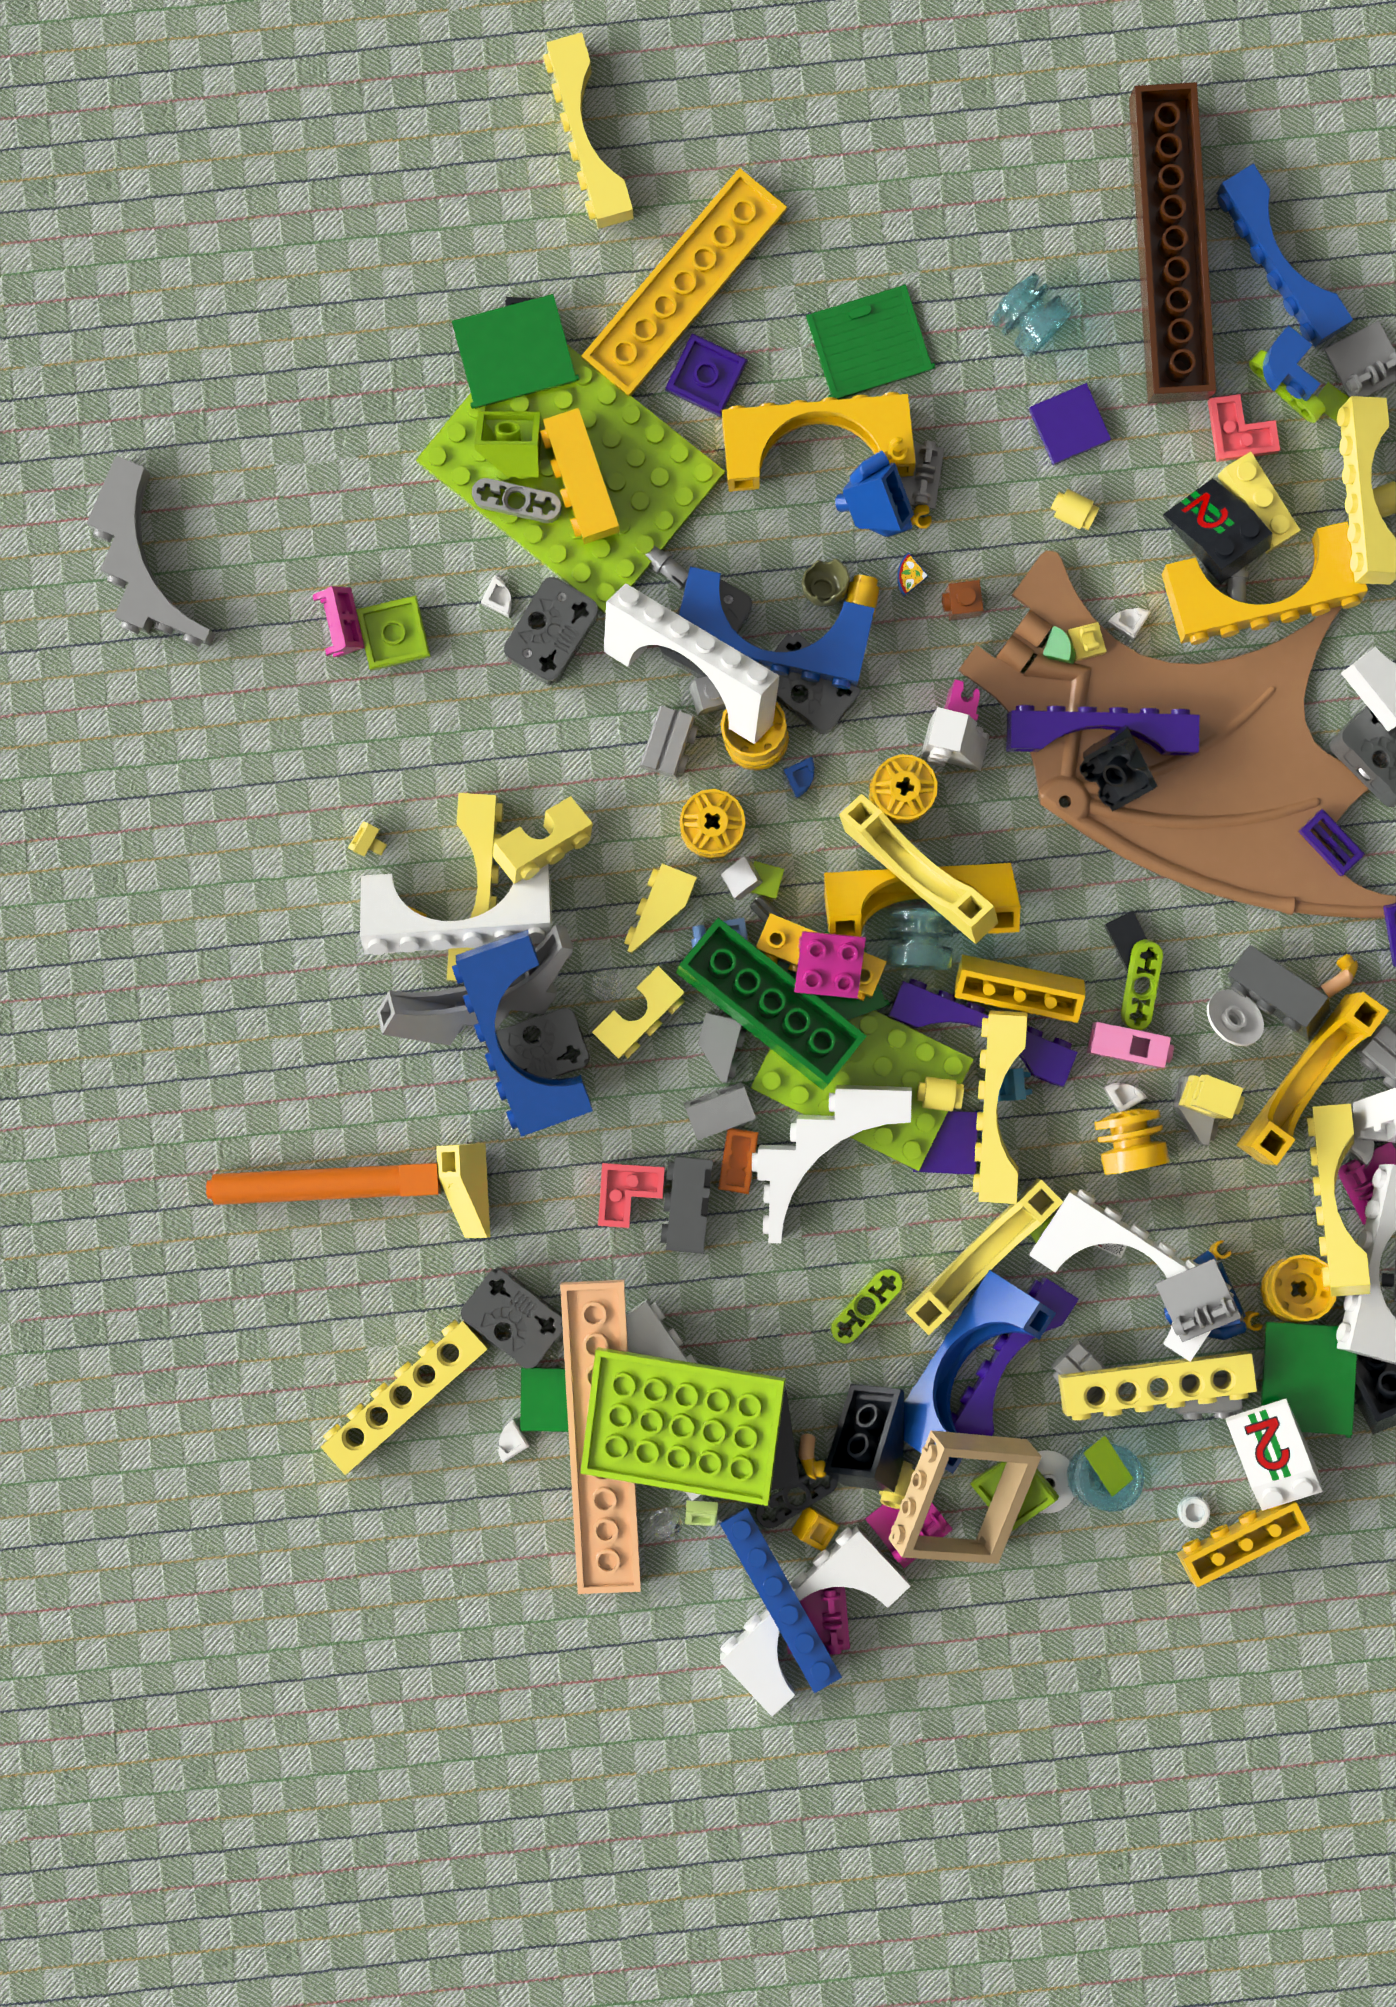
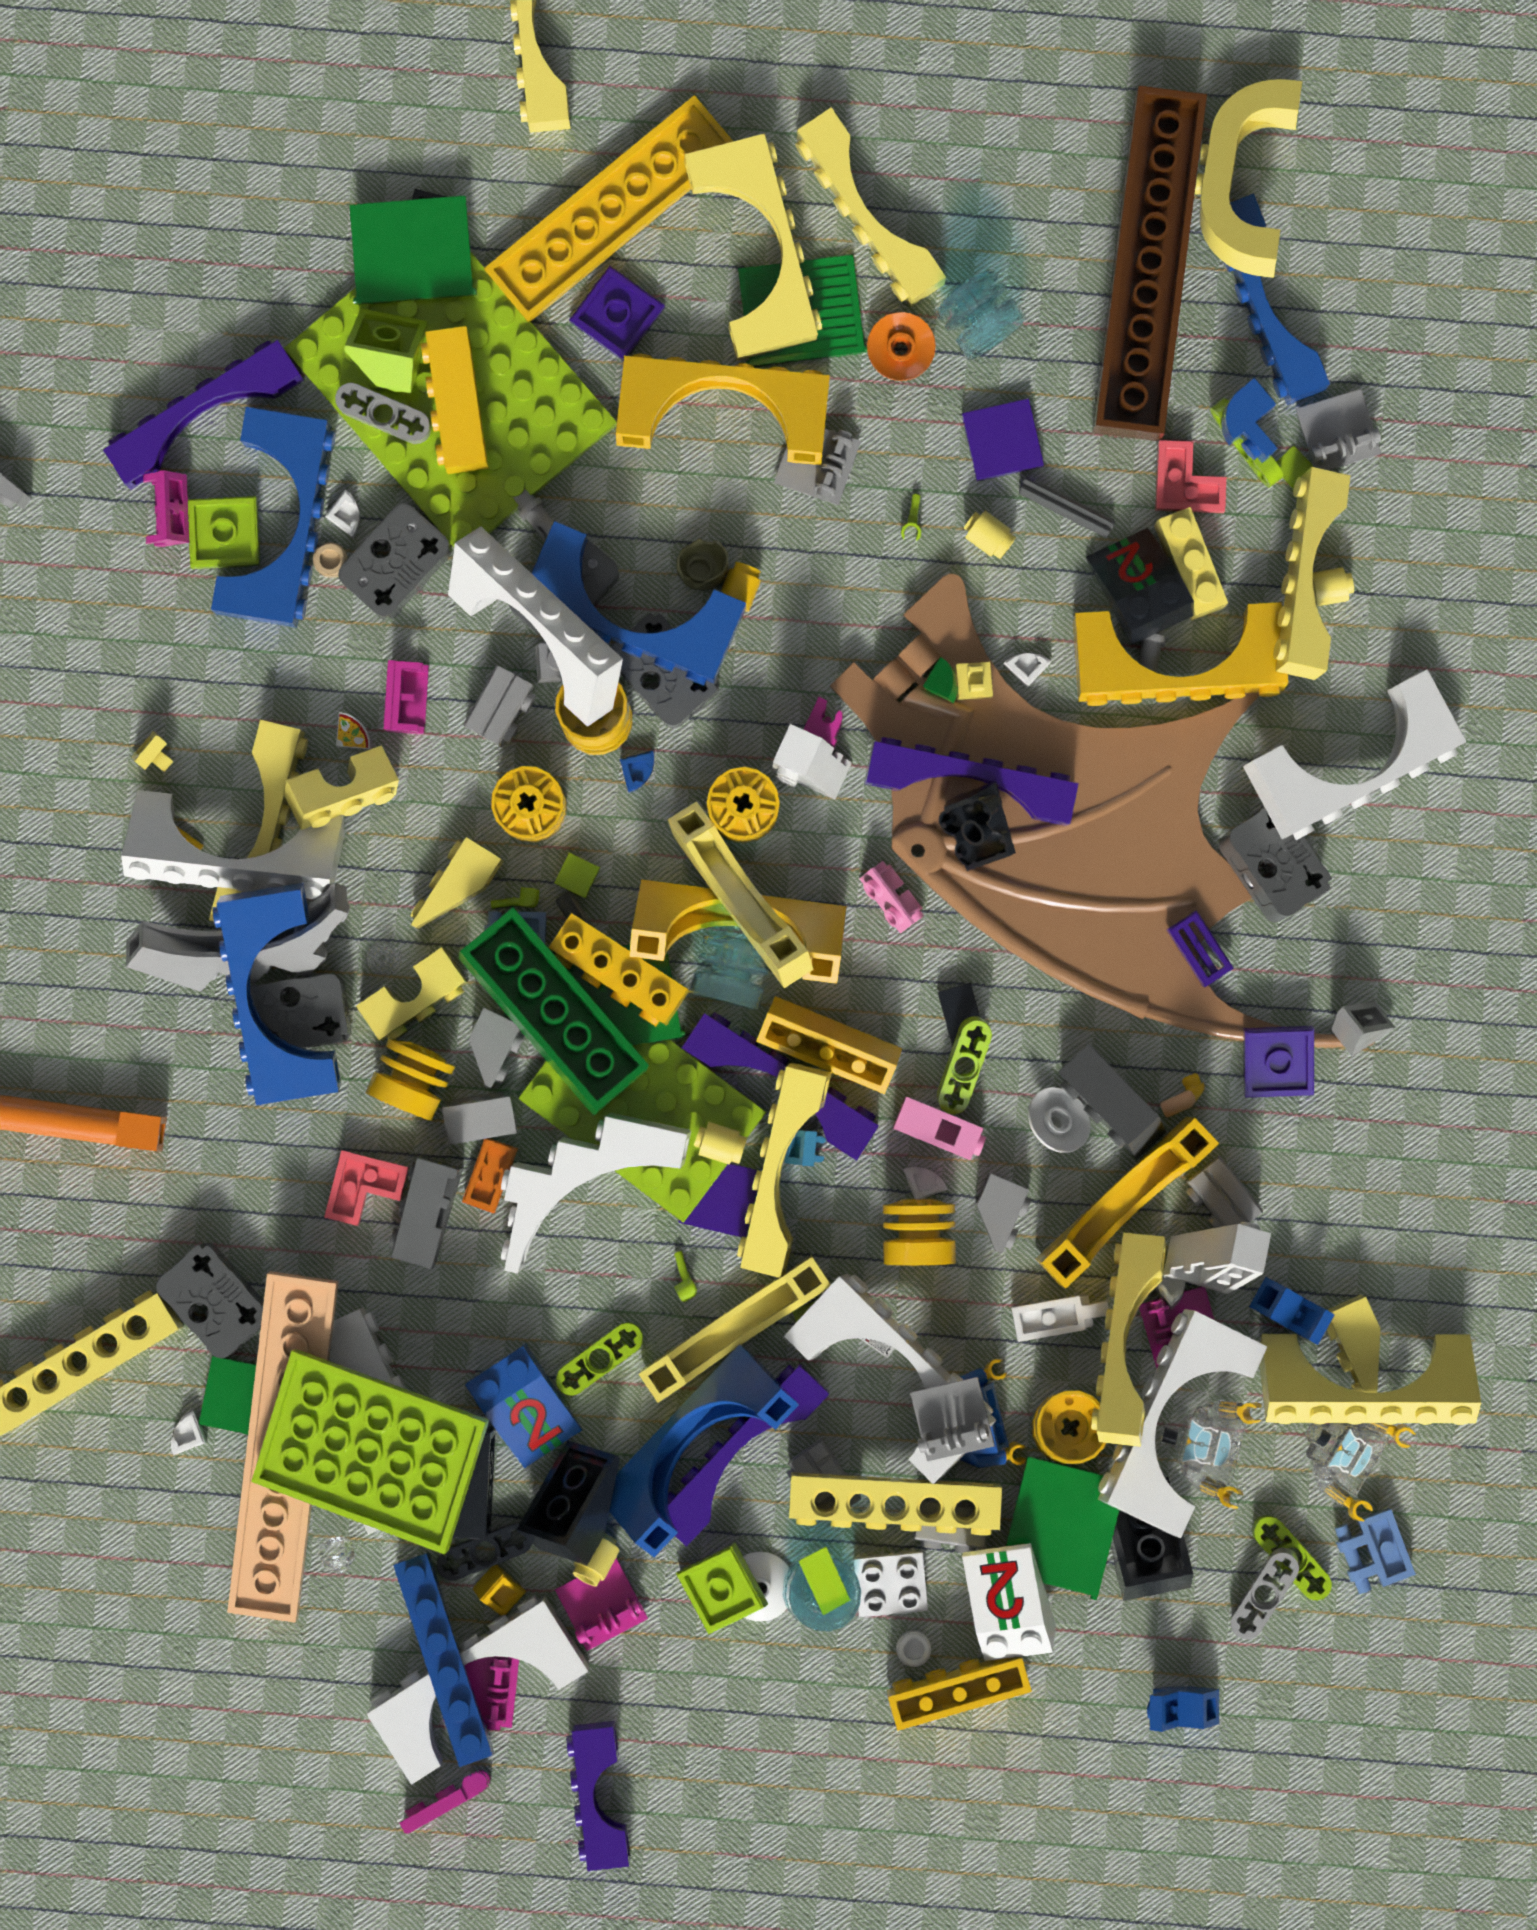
camera: 15 degrees right, 0 degrees up
(401, 487) = (143, 450): none -> dark purple arch
(448, 677) = (277, 590): none -> blue arch
(465, 1183) = (188, 1144): light yellow slope -> none
(492, 640) = (329, 559): none -> tan tile
(541, 790) = (352, 733): none -> tile
(583, 749) = (406, 697): none -> dark pink hinge
(653, 1087) = (410, 1079): none -> yellow wheel
(701, 1513) = (377, 1550): yellowish green tile -> none
(725, 907) = (528, 898): none -> lime hand
(741, 878) = (551, 868): tile -> none
(802, 228) = (747, 172): none -> light yellow arch
(805, 1725) = (446, 1801): none -> dark pink hinge
(806, 1455) = (503, 1511): arm -> none
(807, 1359) = (523, 1406): none -> blue slope
(829, 964) = (622, 981): dark pink hinge -> none
(878, 496) = (776, 481): blue torso -> none
(909, 575) = (797, 572): tile -> none
(932, 1228) = (687, 1288): none -> lime hand
(952, 1732) = (604, 1839): none -> dark purple arch
(957, 284) = (908, 265): none -> light yellow arch
(963, 600) = (848, 611): dark orange brick -> none
(970, 343) = (906, 330): none -> orange dish
(1003, 508) = (913, 516): none -> lime hand
(1003, 1510) = (702, 1610): tan window -> none
(1037, 839) = (898, 910): none -> bright pink hinge
(1137, 473) = (1066, 507): none -> dark grey axle
(1165, 1455) = (891, 1583): none -> hinge
(1212, 1097) = (1009, 1201): light yellow arch -> none
(1240, 203) = (1232, 240): none -> light yellow arch
(1265, 1193) = (1056, 1316): none -> white hinge

